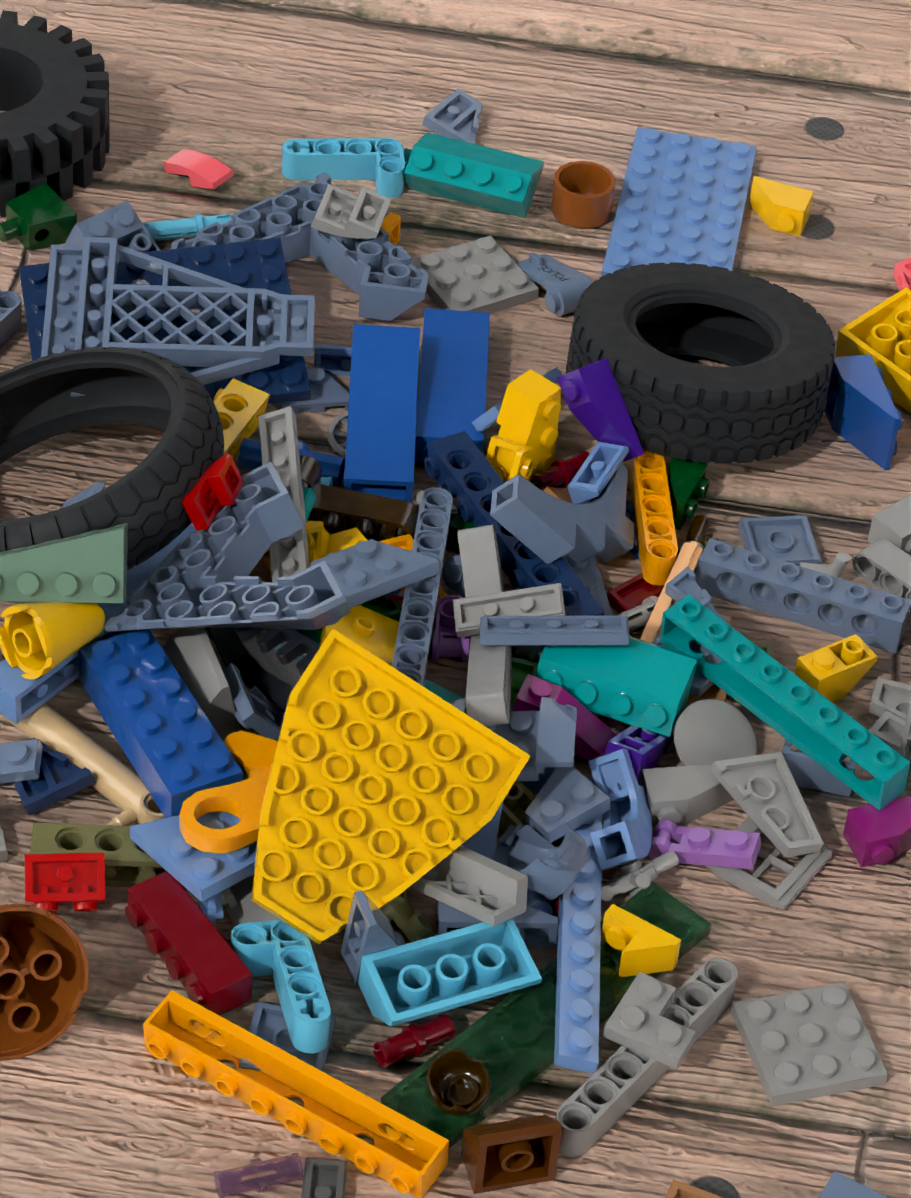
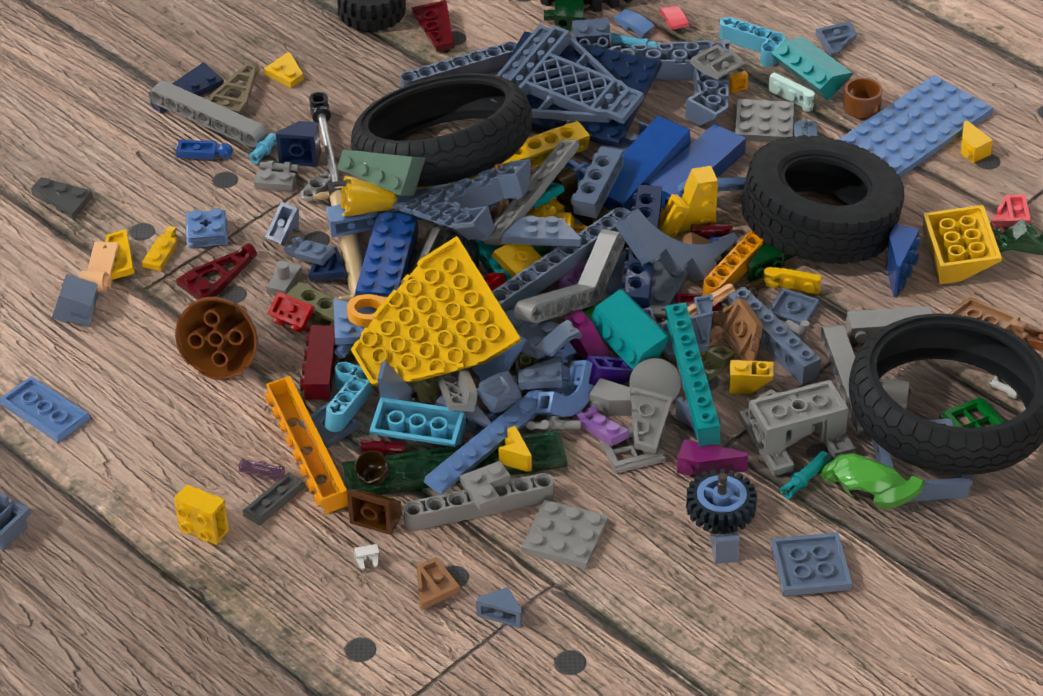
camera: 40 degrees right, 0 degrees up
(147, 194) = (631, 20): none -> medium blue slope
(215, 488) = (486, 161): red slope -> none
(358, 462) = (597, 182): none -> sand blue brick
(476, 220) = (791, 91): none -> light aqua plate
(531, 601) = (599, 277): light grey tile -> none
(554, 630) = (607, 293): sand blue tile -> none
(596, 471) = (717, 231): medium blue slope -> none
(600, 406) = (735, 194): dark purple slope -> none
(747, 500) = (793, 280): none -> yellow hinge
(764, 605) = (741, 329): none -> medium nougat wing

